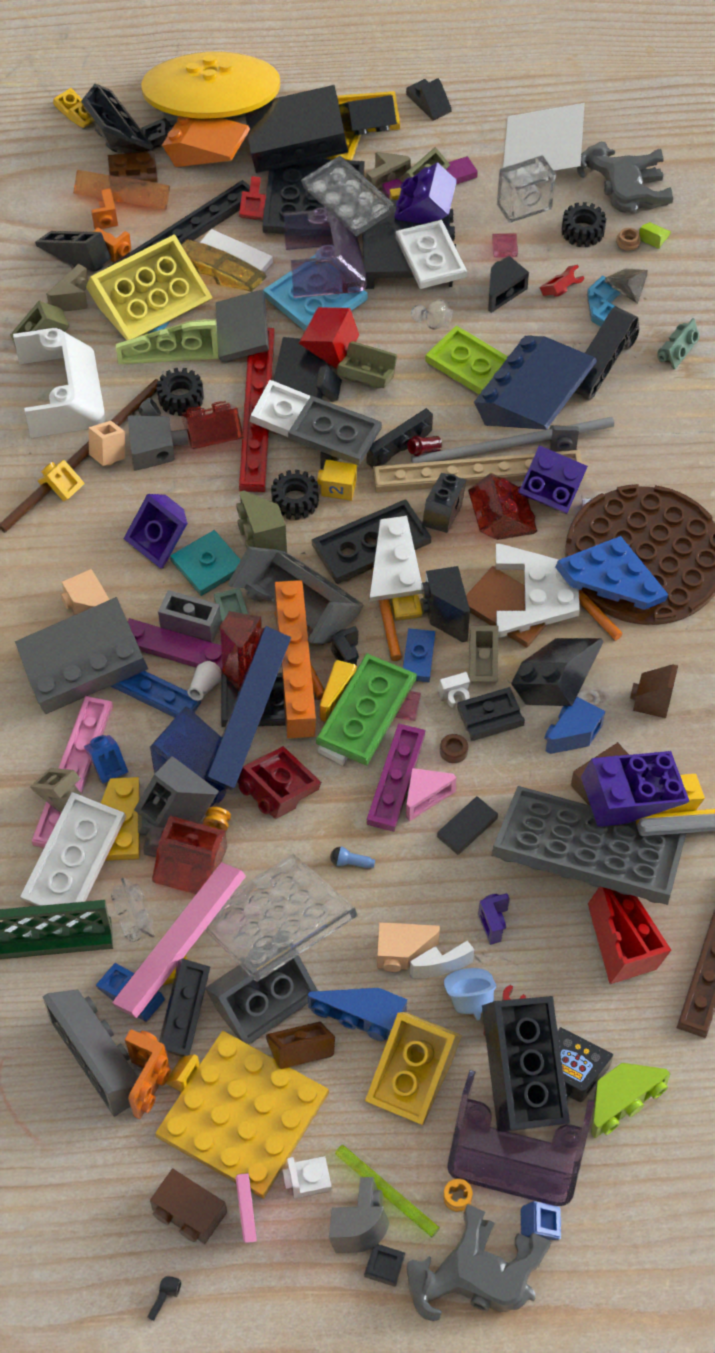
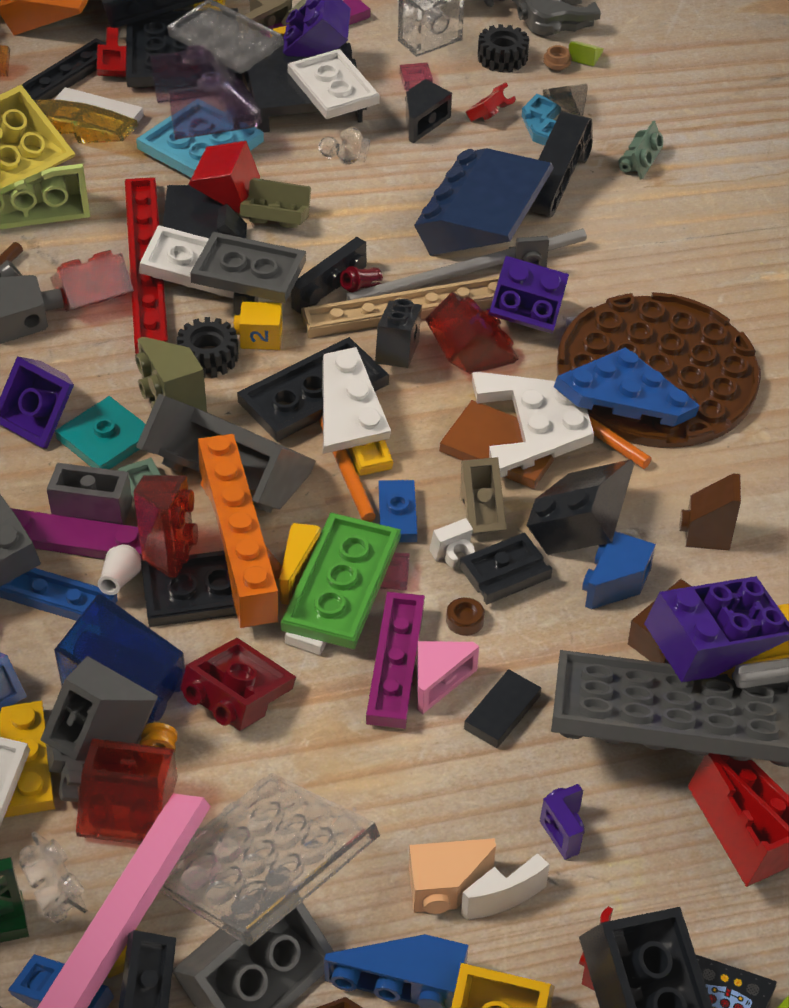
camera: 10 degrees left, 10 degrees down
(179, 380) = (32, 250): black tyre -> none
(242, 326) = (115, 178): dark grey tile -> none
(248, 708) = (184, 592): dark blue tile -> none
(341, 856) = (339, 769): medium blue piece -> none
(344, 644) = (300, 506): black bracket -> none
(446, 602) = (424, 441): black slope -> none
(466, 359) = (393, 187): lime plate -> none
(470, 990) = (554, 923): light blue piece -> none

